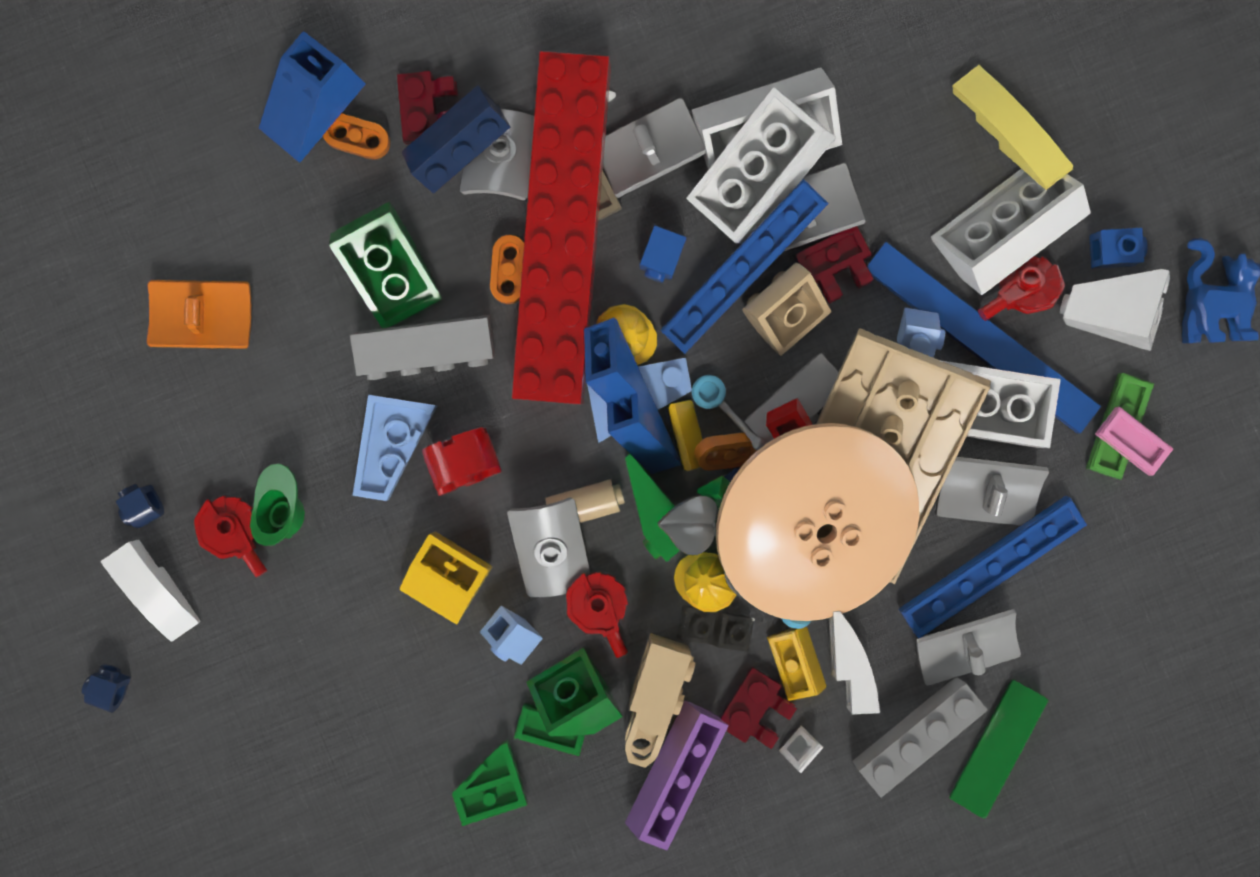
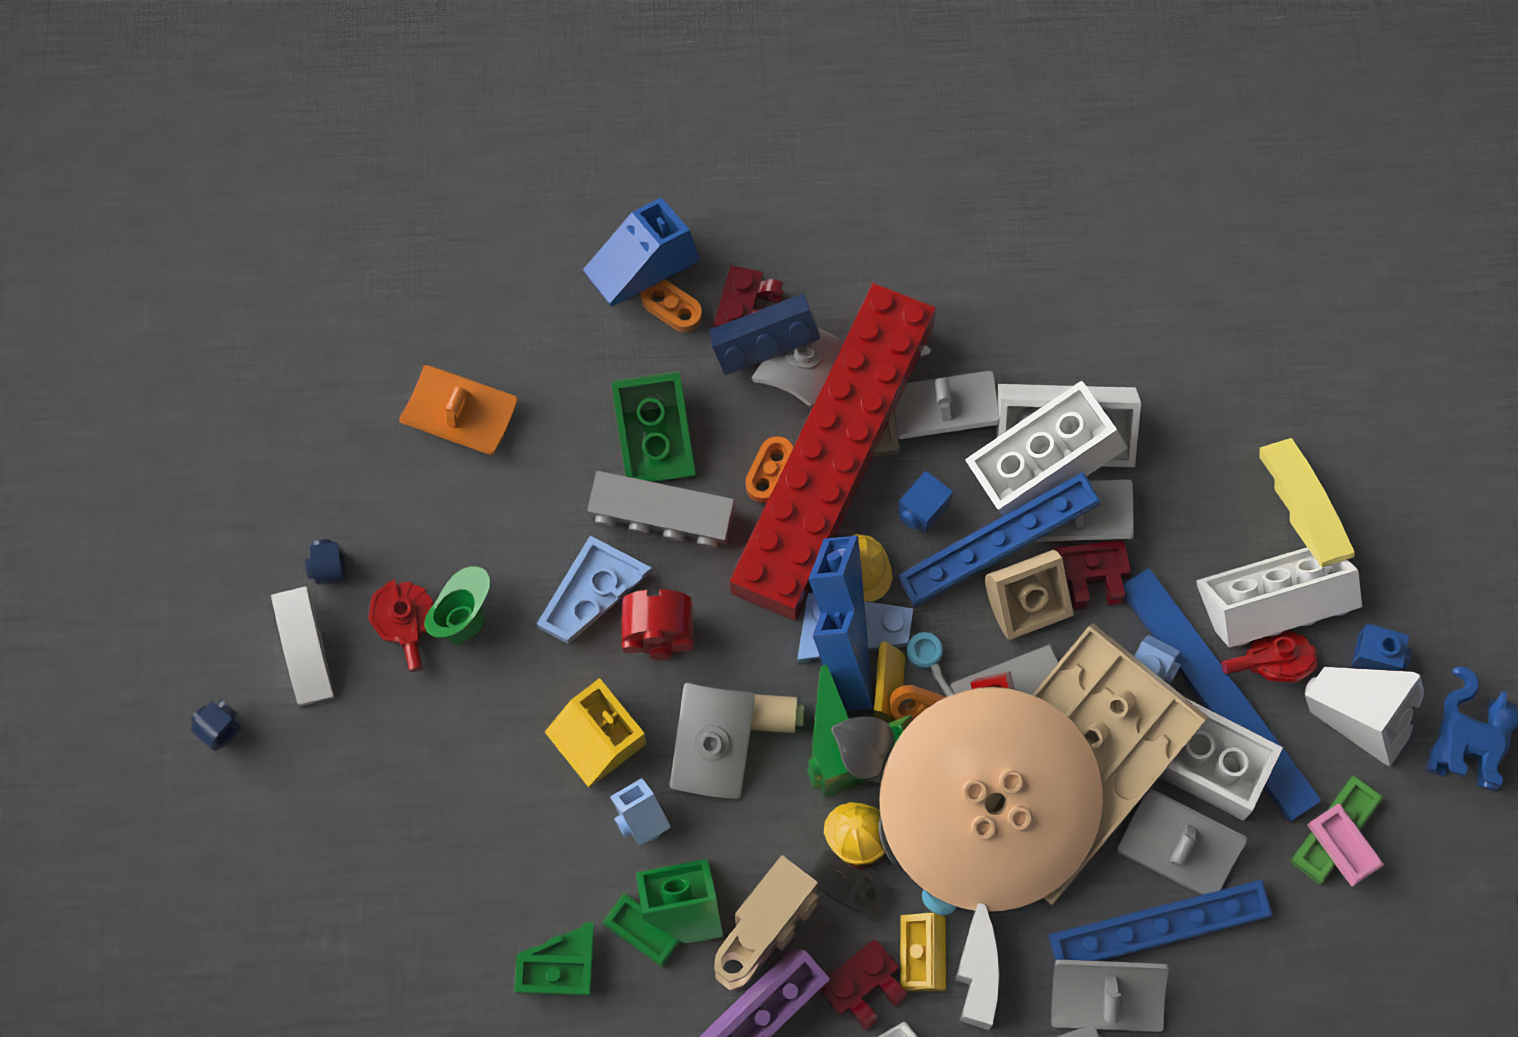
camera: 15 degrees right, 20 degrees down
(596, 607) = (737, 818): red piece -> none

